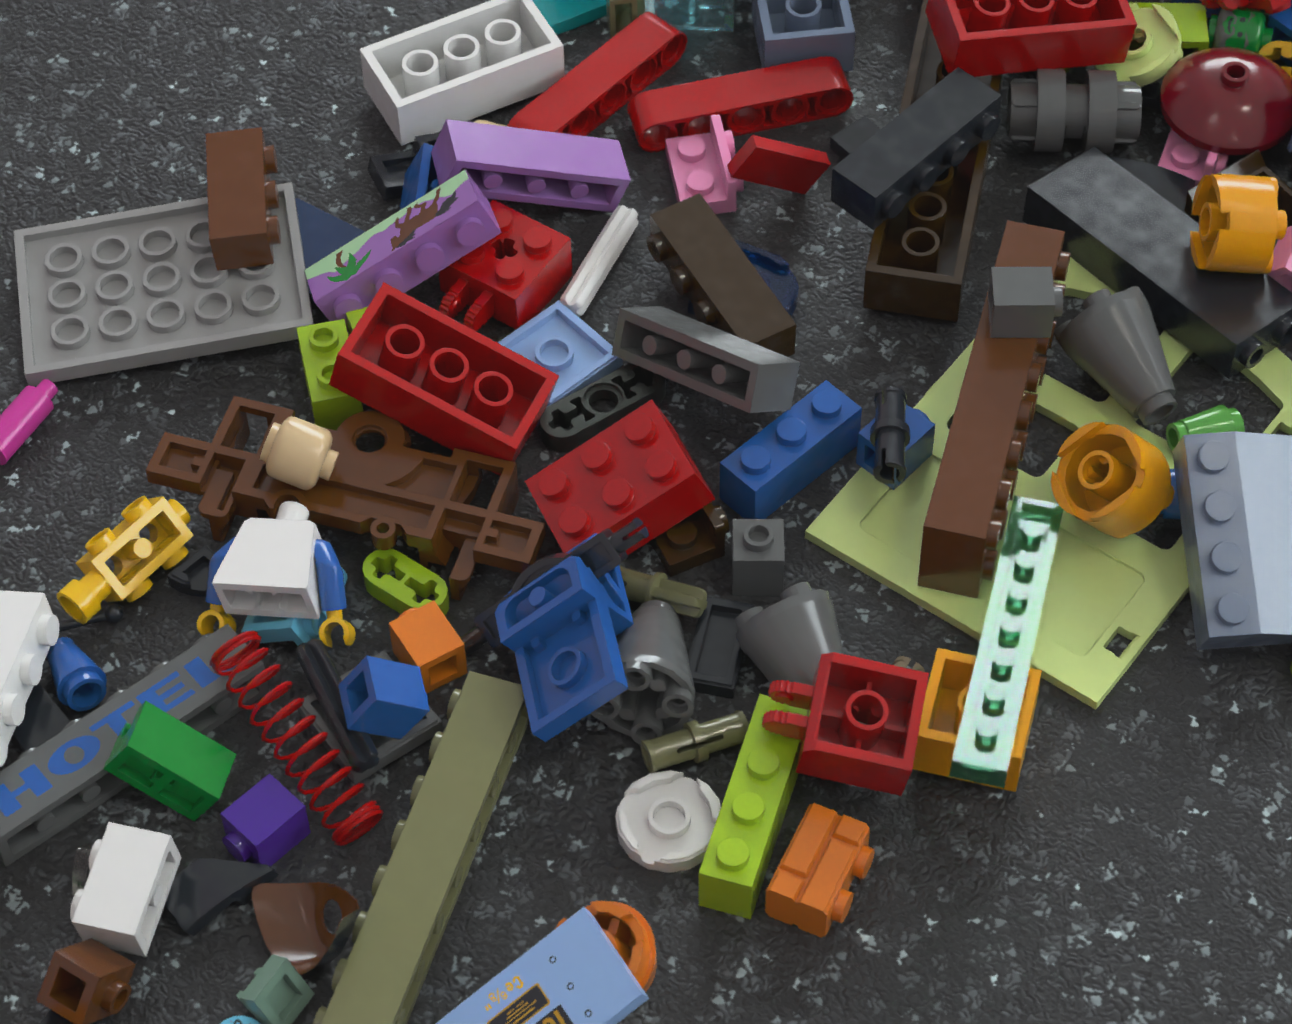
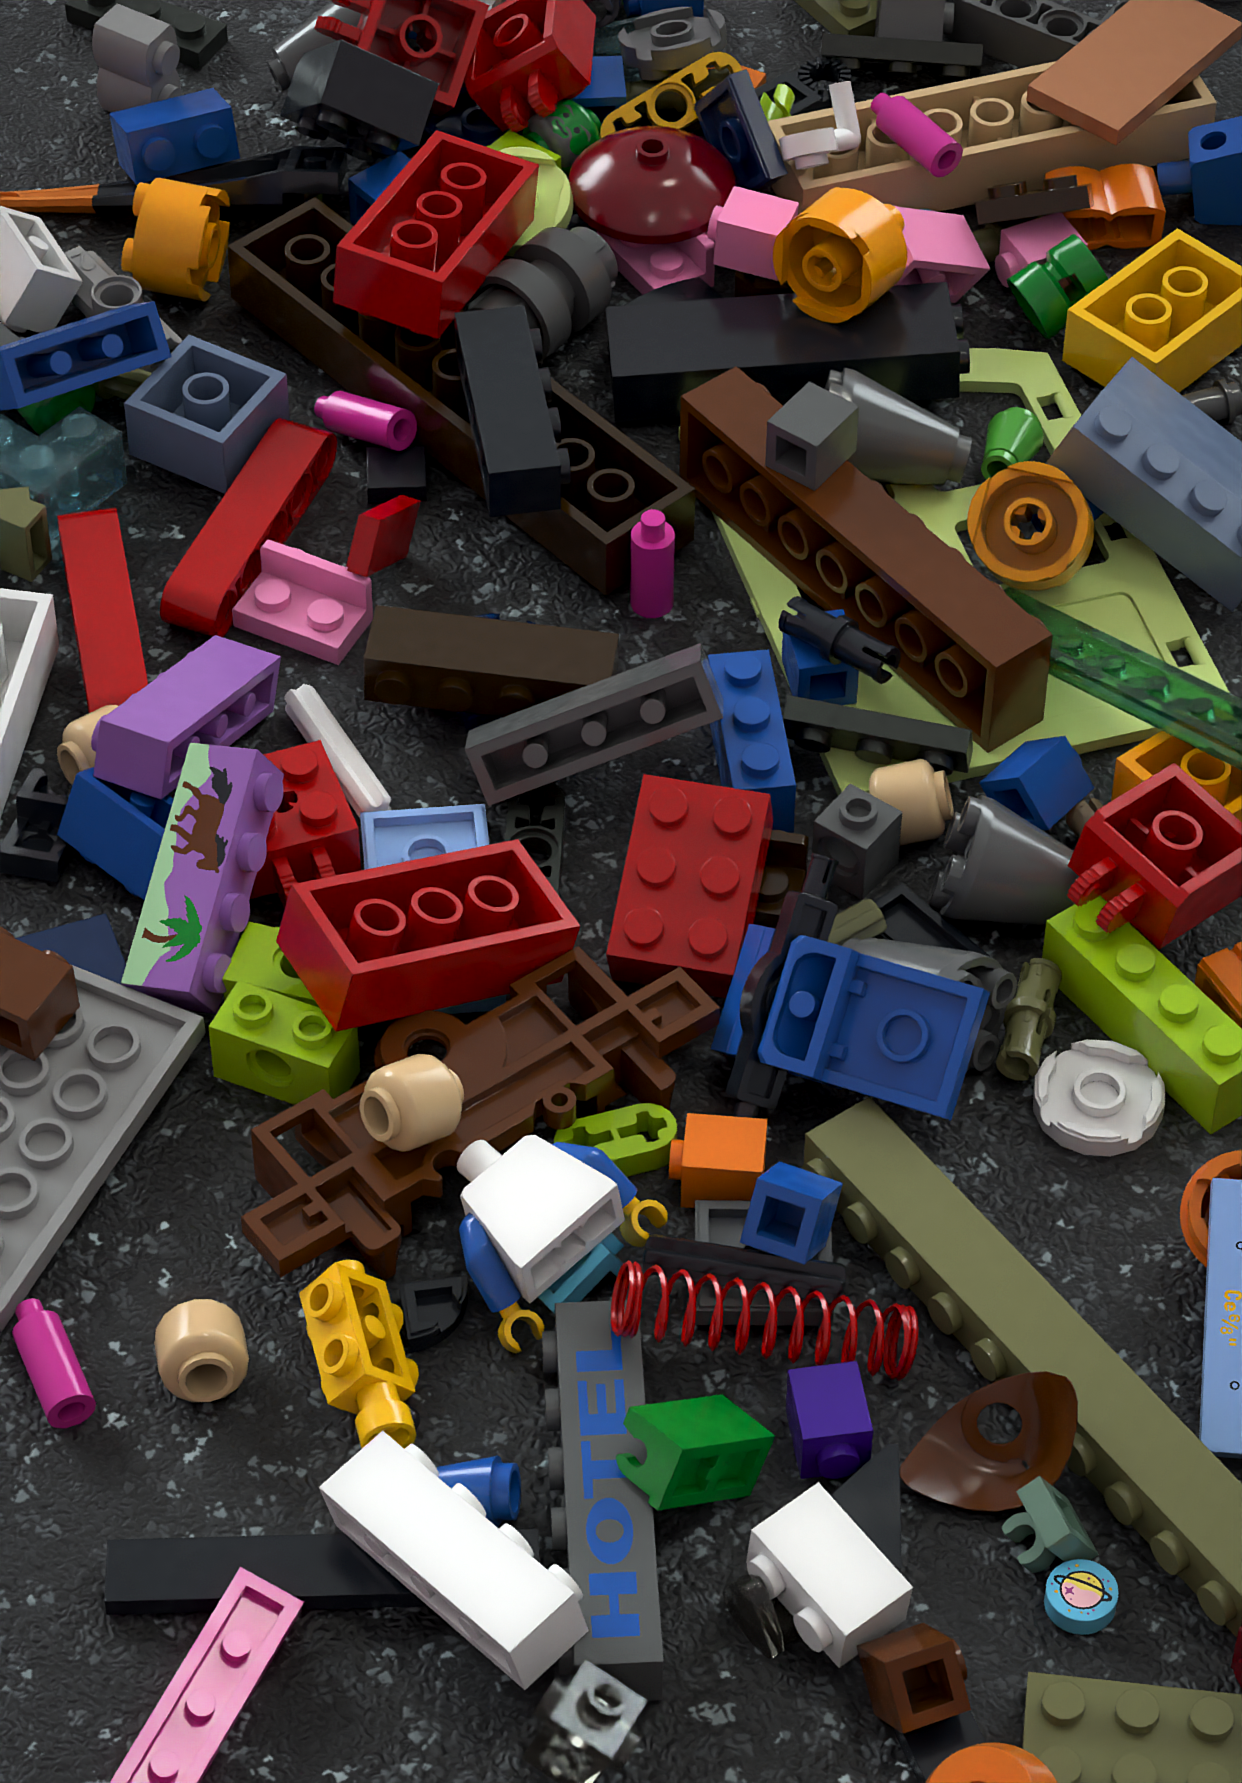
camera: 55 degrees left, 5 degrees down
(74, 481) = (201, 1350): none -> tan head
(822, 562) = (920, 796): none -> tan head
(854, 514) = (876, 735): none -> pearl dark grey plate
(882, 98) = (367, 420): none -> dark pink cylinder
(889, 309) = (652, 565): none -> dark pink cylinder
(899, 624) = (1039, 781): none -> blue brick
(1219, 155) = (747, 230): none -> bright pink brick

